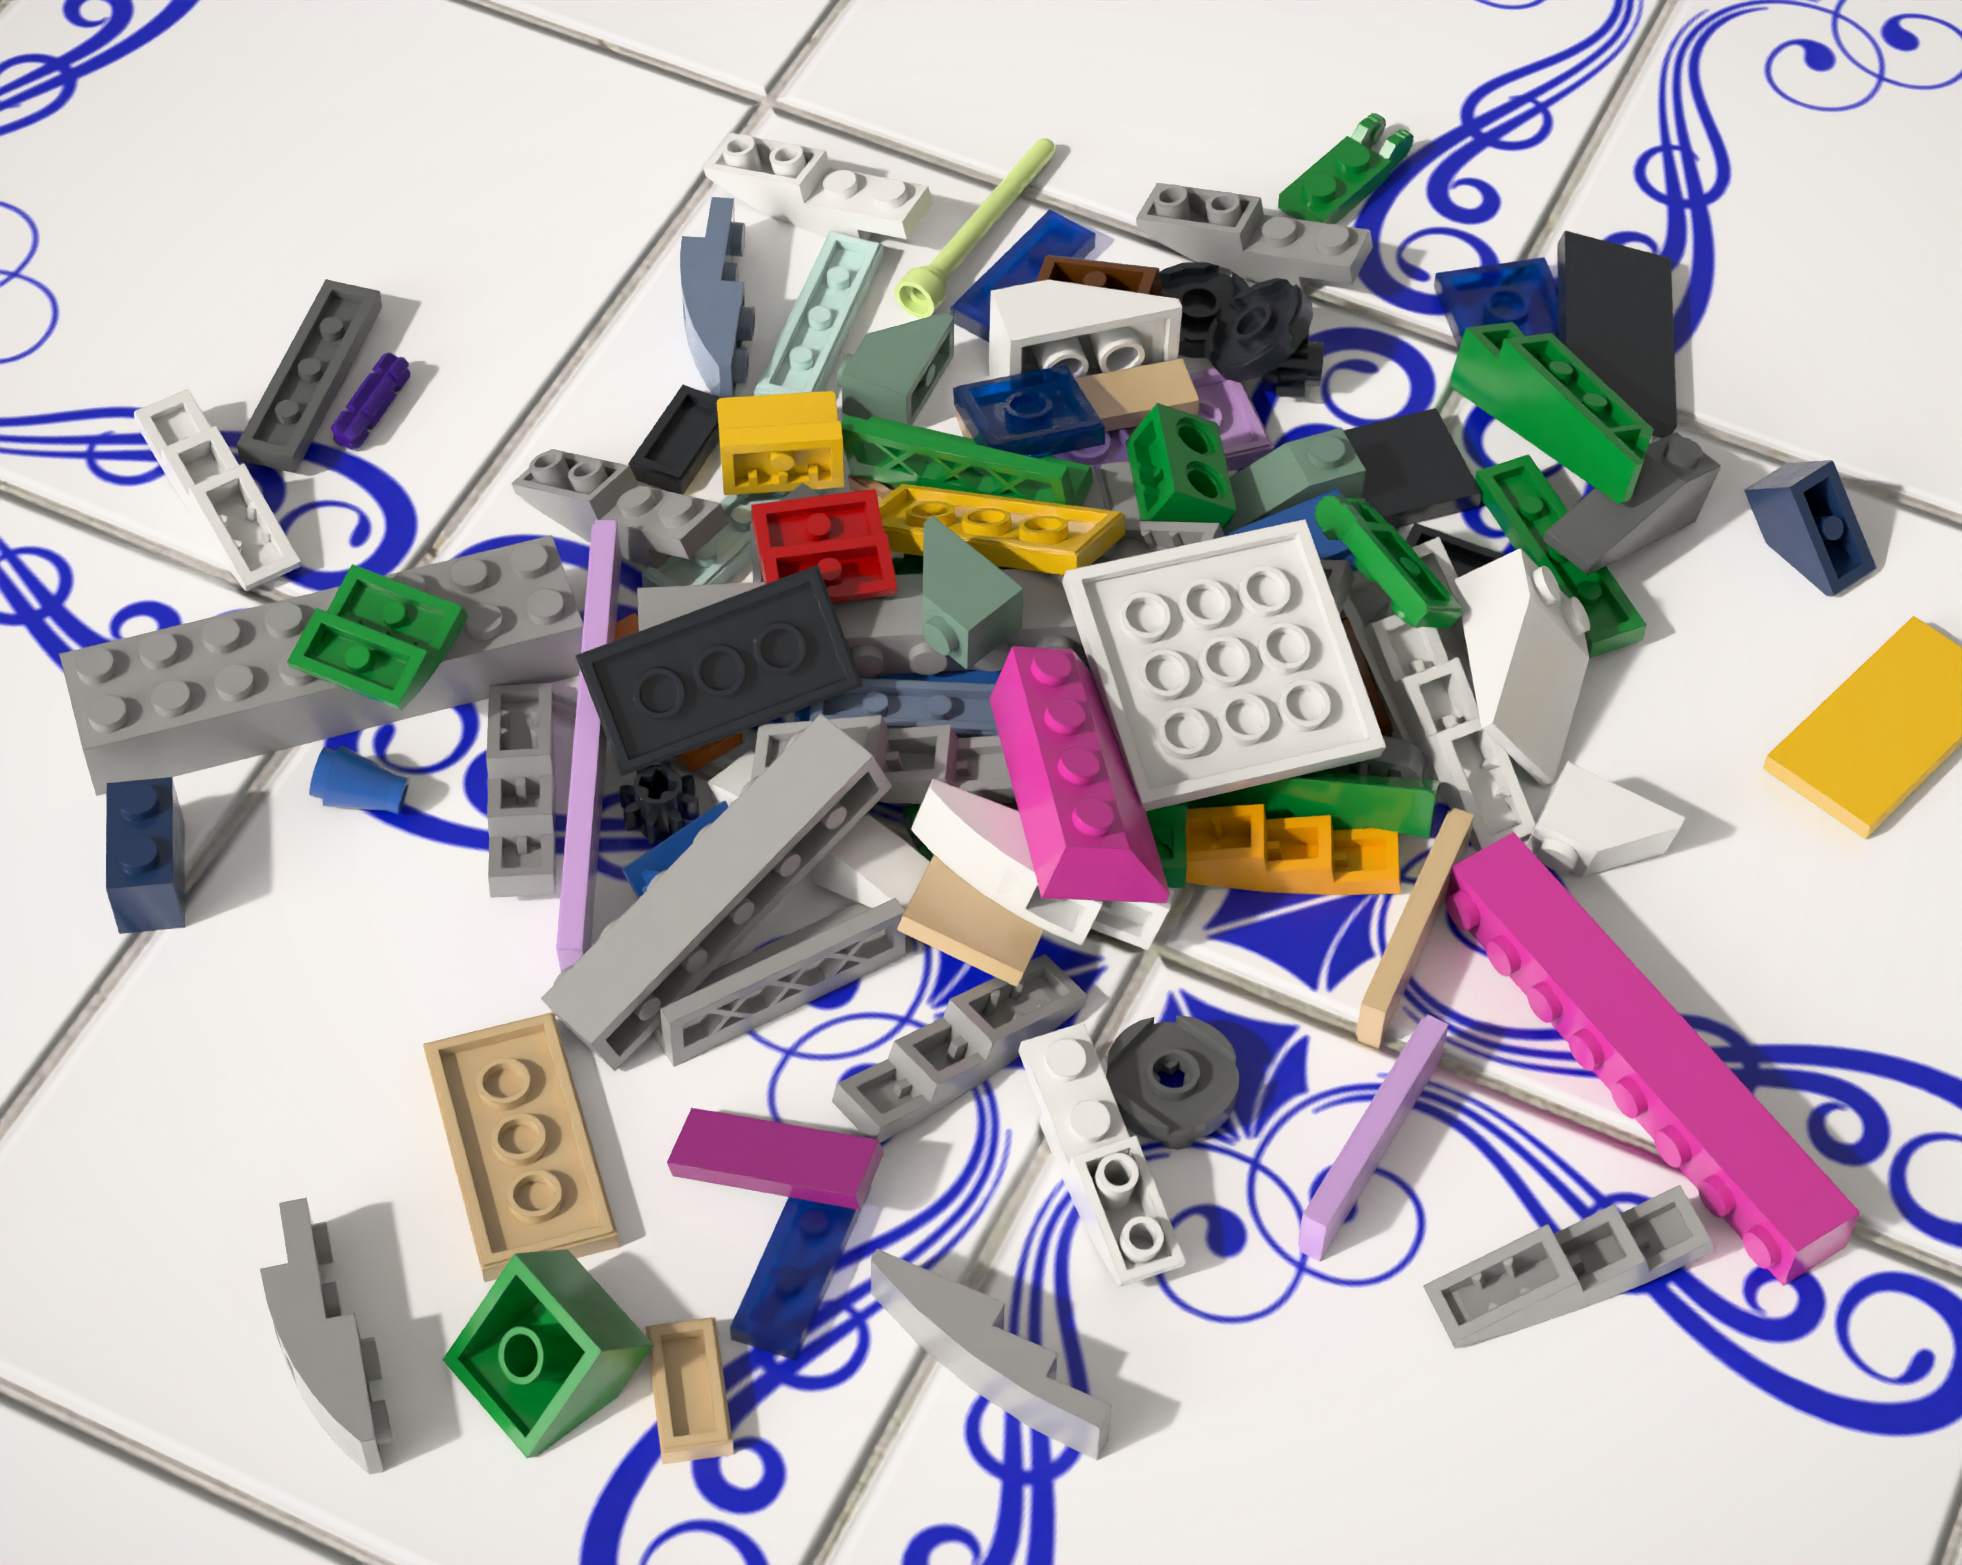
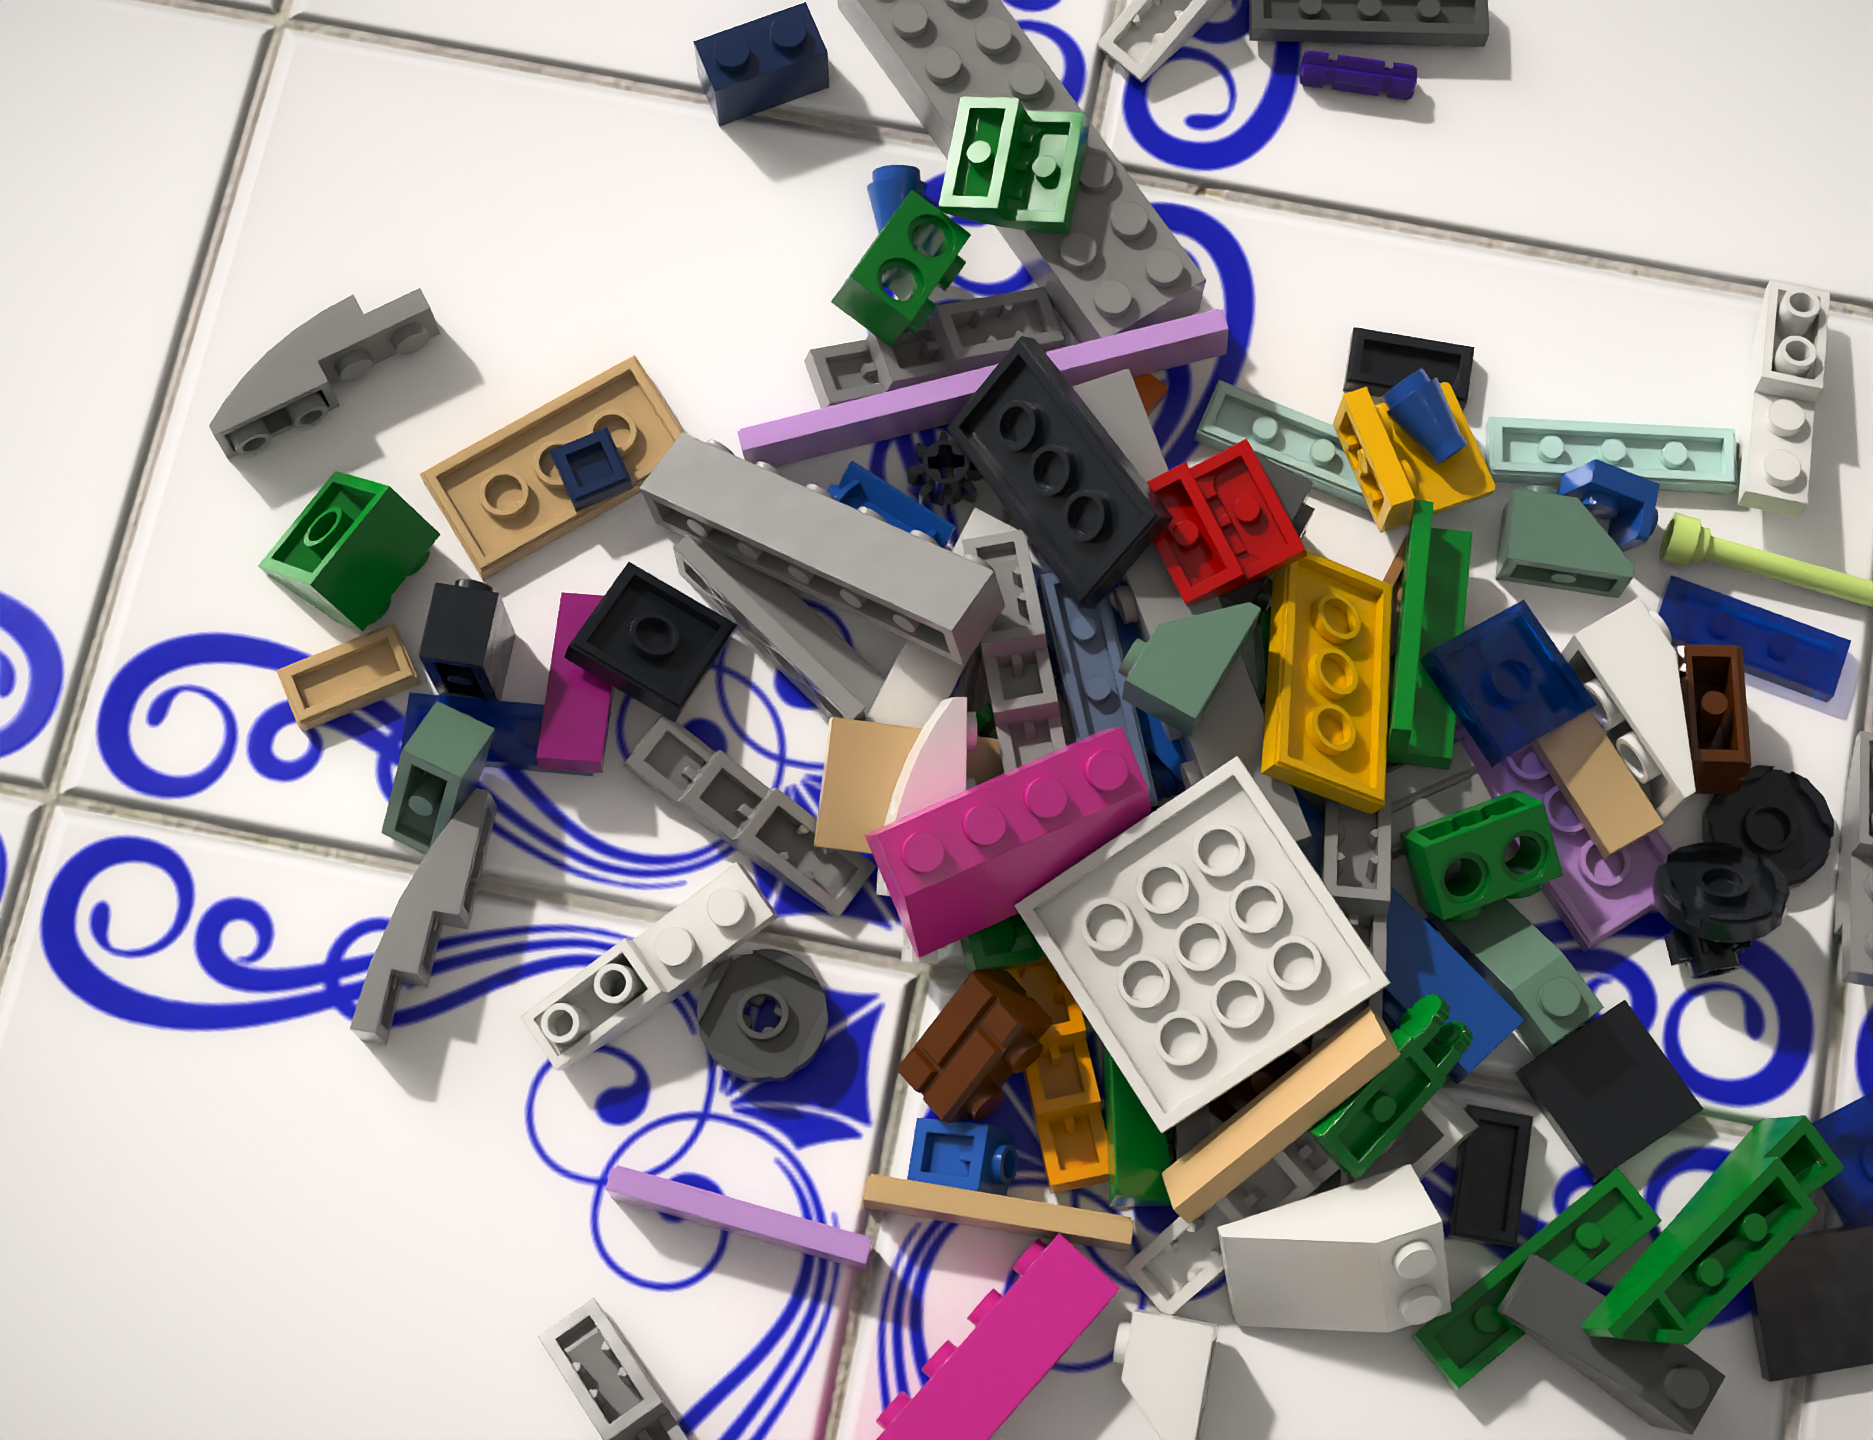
camera: 75 degrees right, 20 degrees up
(441, 767) = (899, 266): none -> green brick
(542, 1100) = (591, 469): none -> dark blue tile
(649, 520) = (1284, 332): light grey slope -> none
(706, 1234) = (467, 640): none -> black brick
(715, 300) = (1575, 344): sand blue slope -> none
(752, 407) = (1425, 416): none -> blue cone
(754, 1082) = (650, 641): none -> black tile
(847, 1301) = (435, 775): none -> sand green slope
(870, 310) = (1615, 496): none -> blue bracket
(1260, 887) = (976, 1046): none -> reddish brown brick
(1352, 943) = (963, 1156): none -> blue bracket
(1394, 650) = (1280, 1115): none -> tan tile

